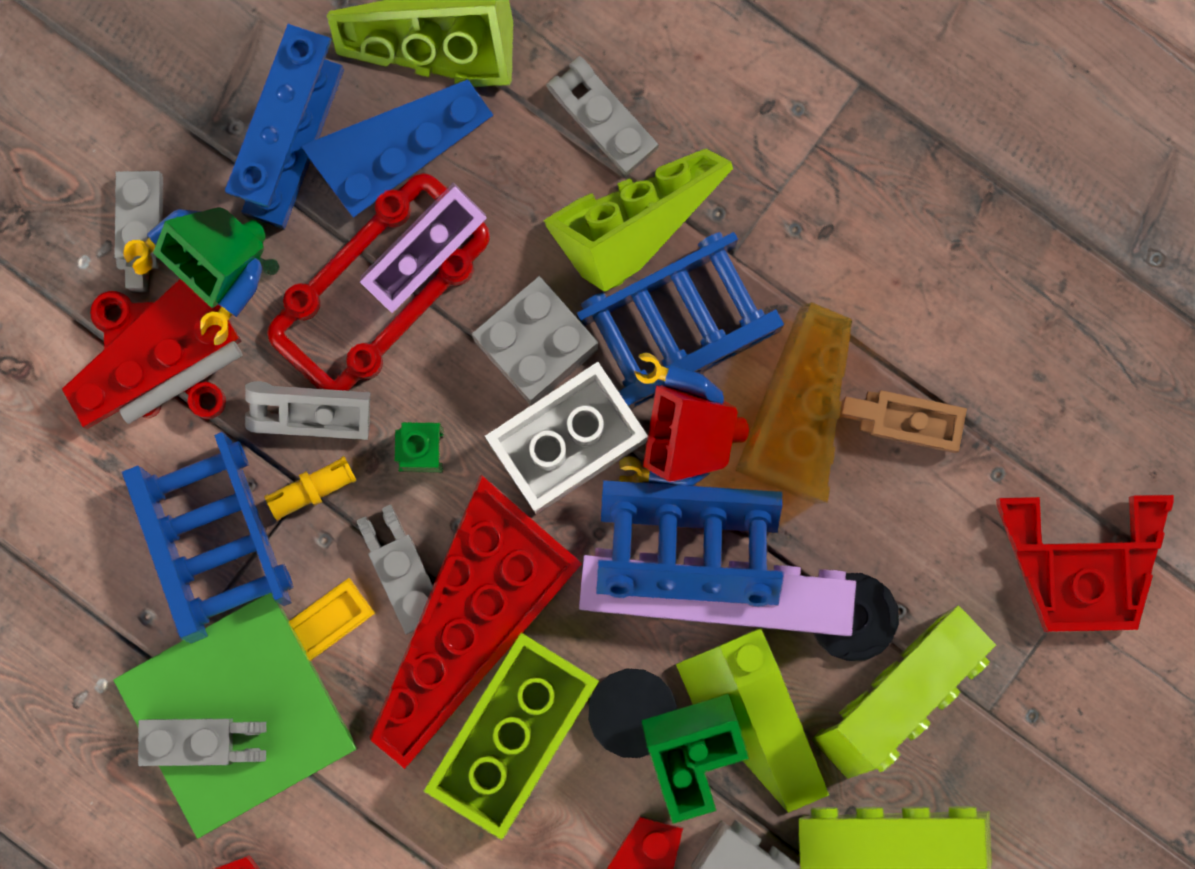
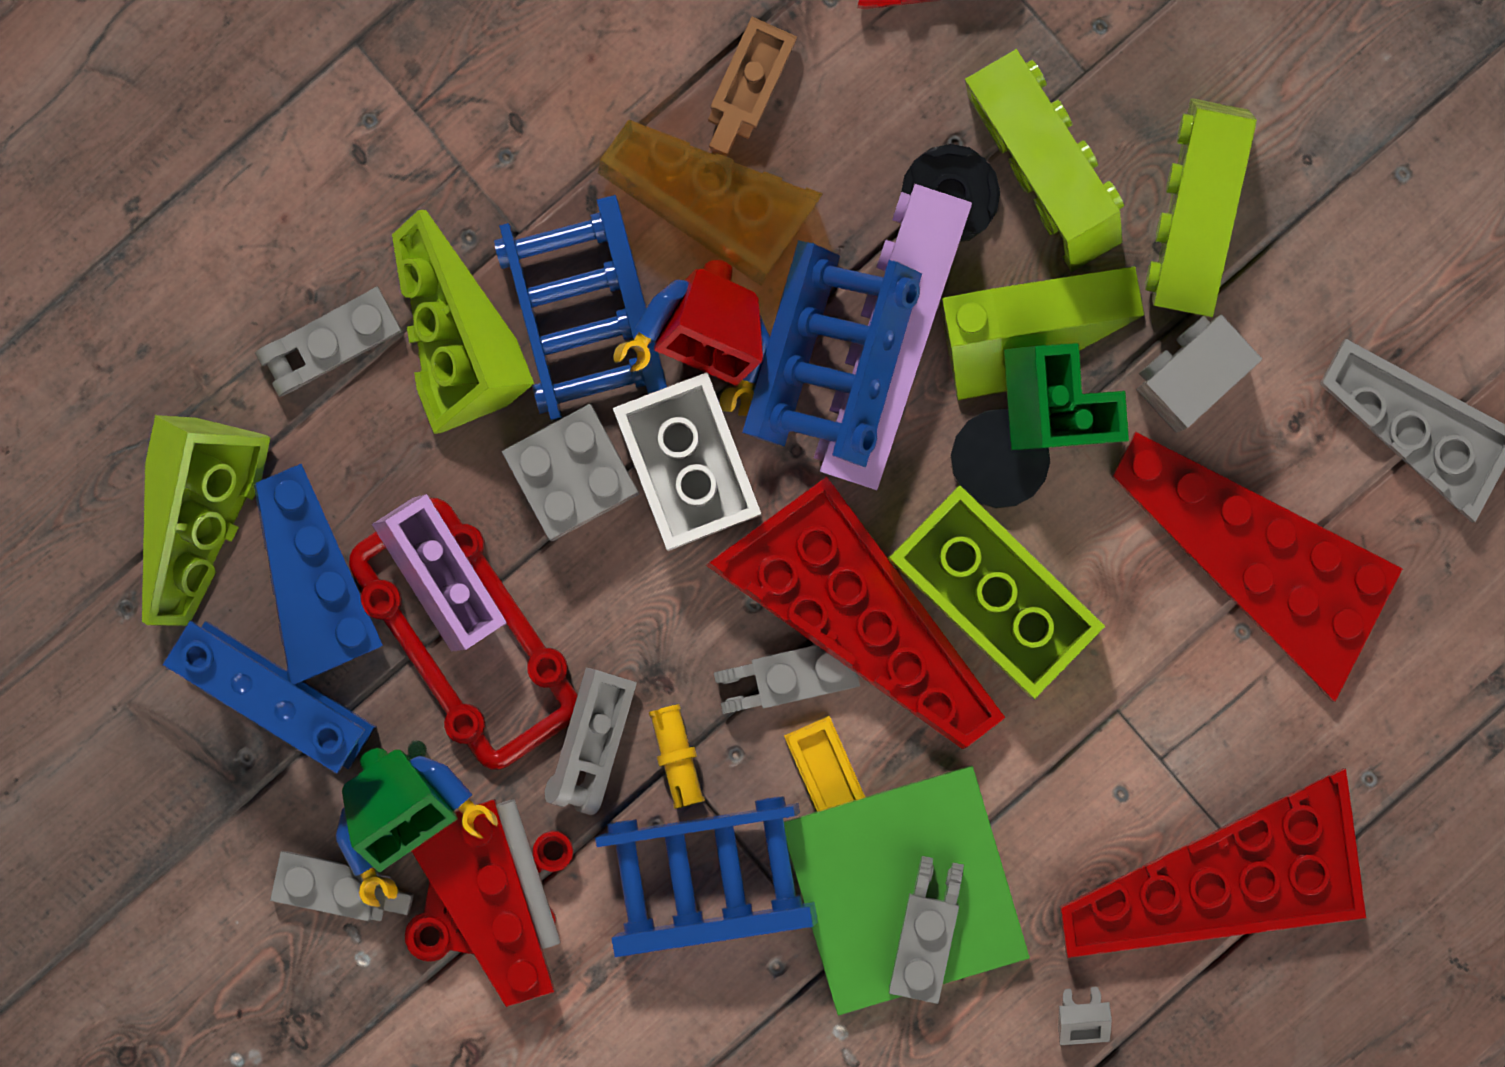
camera: 75 degrees left, 5 degrees up
(418, 447) = (659, 627): green window -> none

